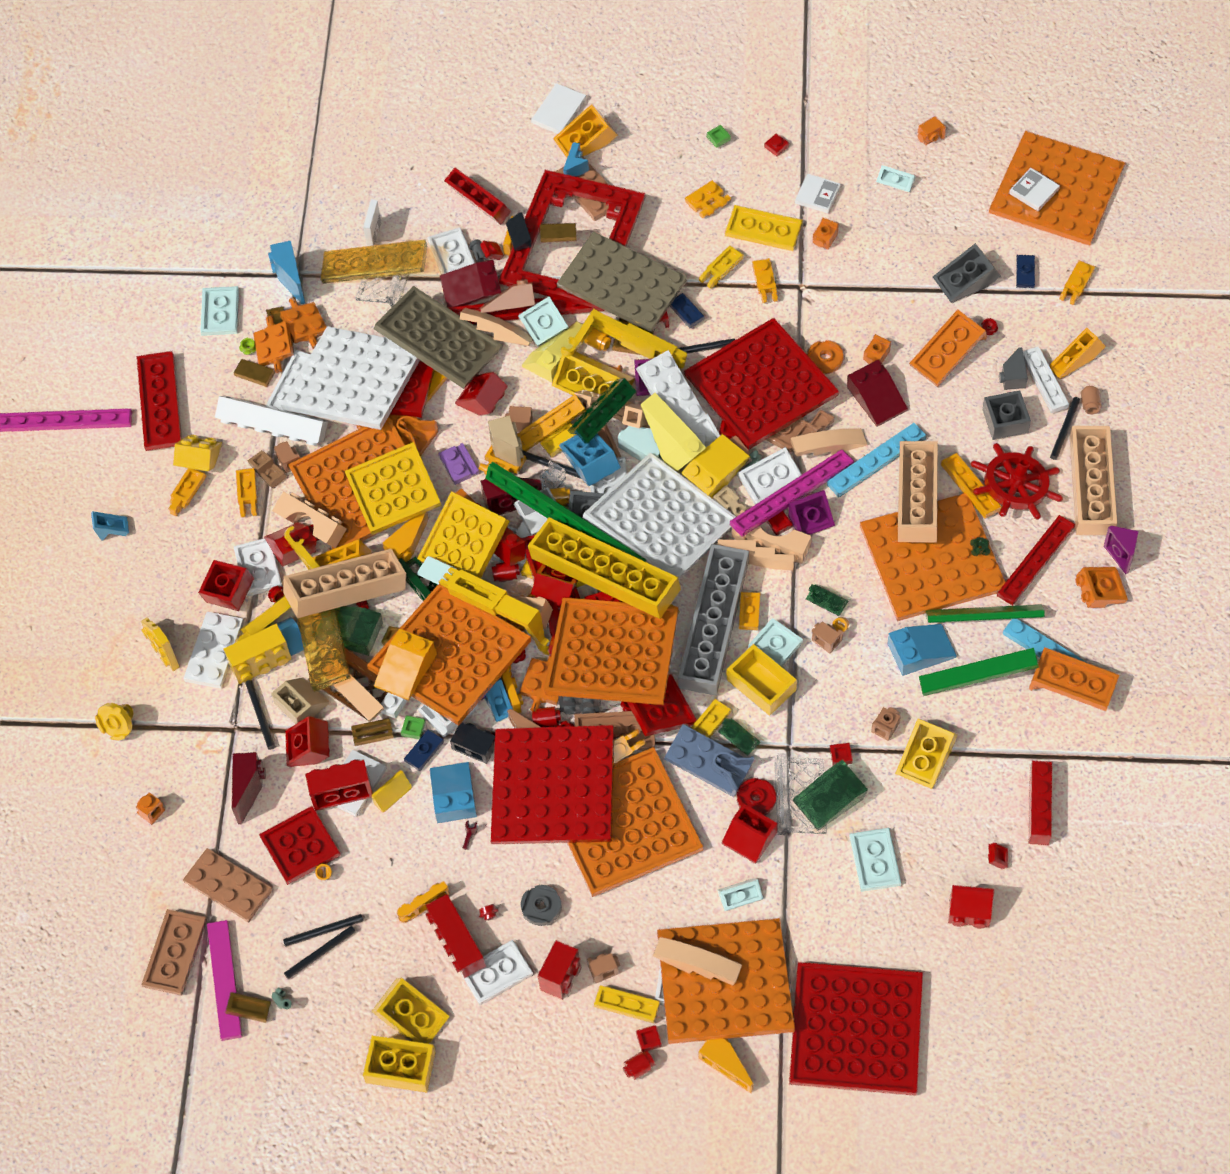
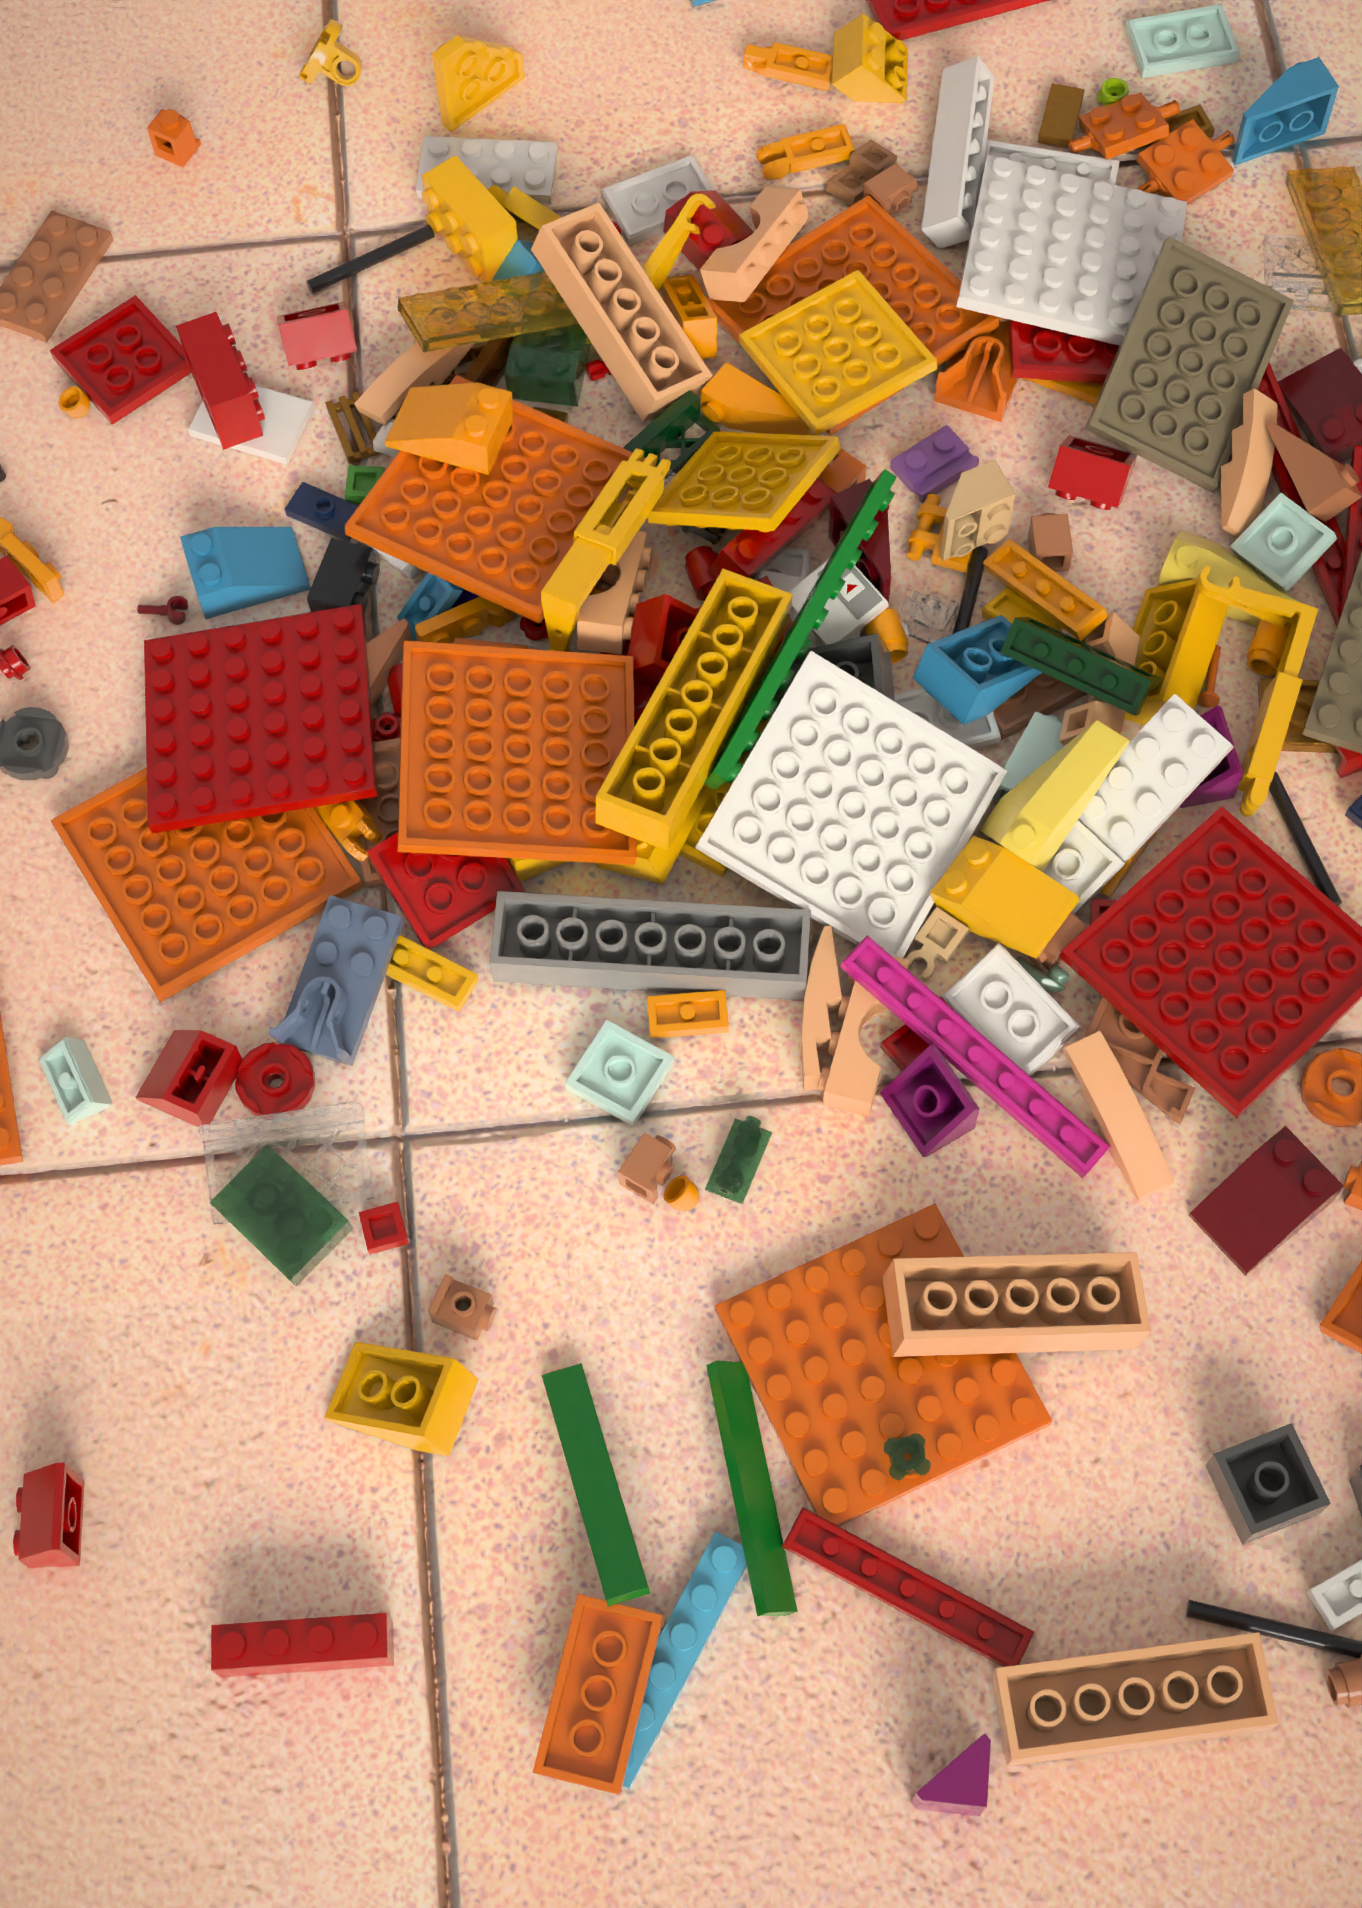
camera: 80 degrees right, 5 degrees up
(226, 585) = (601, 150): red brick -> none
(246, 782) = (215, 251): dark red slope -> none
(298, 699) = (375, 295): tan slope -> none
(391, 791) = (236, 474): yellow slope -> none
(433, 569) = (683, 451): light aqua slope -> none
(738, 736) = (407, 1033): clear green hinge -> none
(761, 679) = (524, 1051): yellow piece -> none
(873, 461) = (1100, 1220): medium azure plate -> none
(875, 859) = (160, 1323): light aqua tile -> none
(920, 647) = (650, 1360): dark azure slope -> none
(967, 482) = (1070, 1426): light orange plate -> none
(998, 855) = (176, 1567): red plate -> none
(1016, 481) = (1098, 1525): red piece -> none
(1100, 586) = (857, 1742): orange plate -> none

